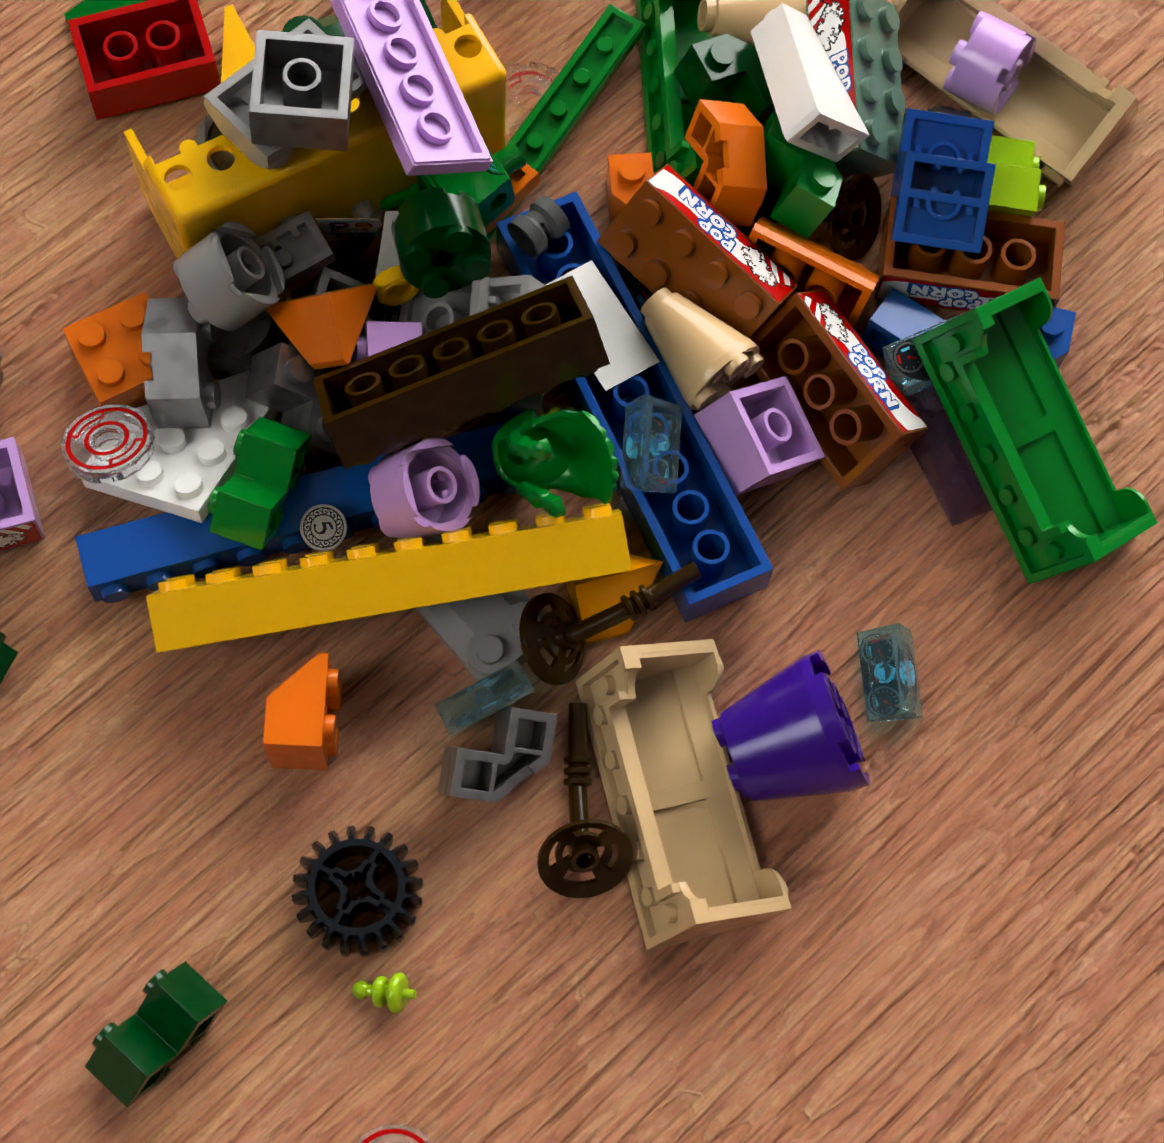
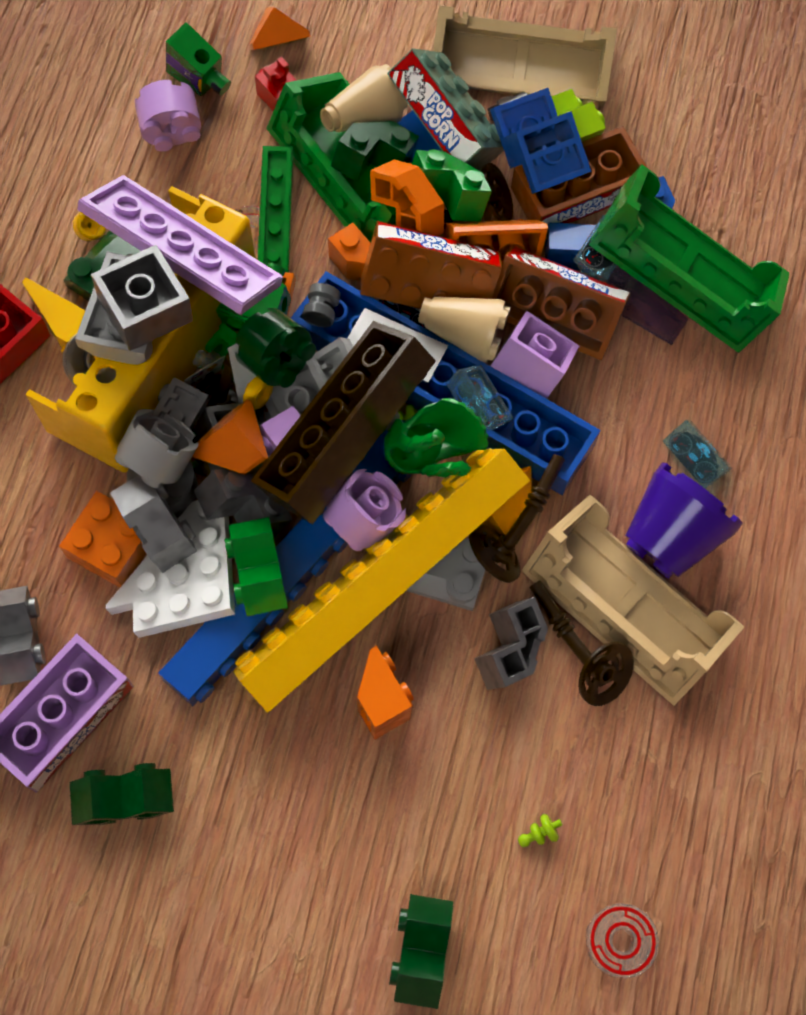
camera: 30 degrees left, 0 degrees up
(103, 424) = (132, 586): clear tile -> none
(323, 527) = (312, 570): light grey tile -> none
(339, 879) = (500, 780): black gear -> none
(484, 698) = (481, 615): clear light blue slope -> none
(805, 86) = (425, 126): white slope -> none
(989, 63) = (514, 57): lavender brick -> none

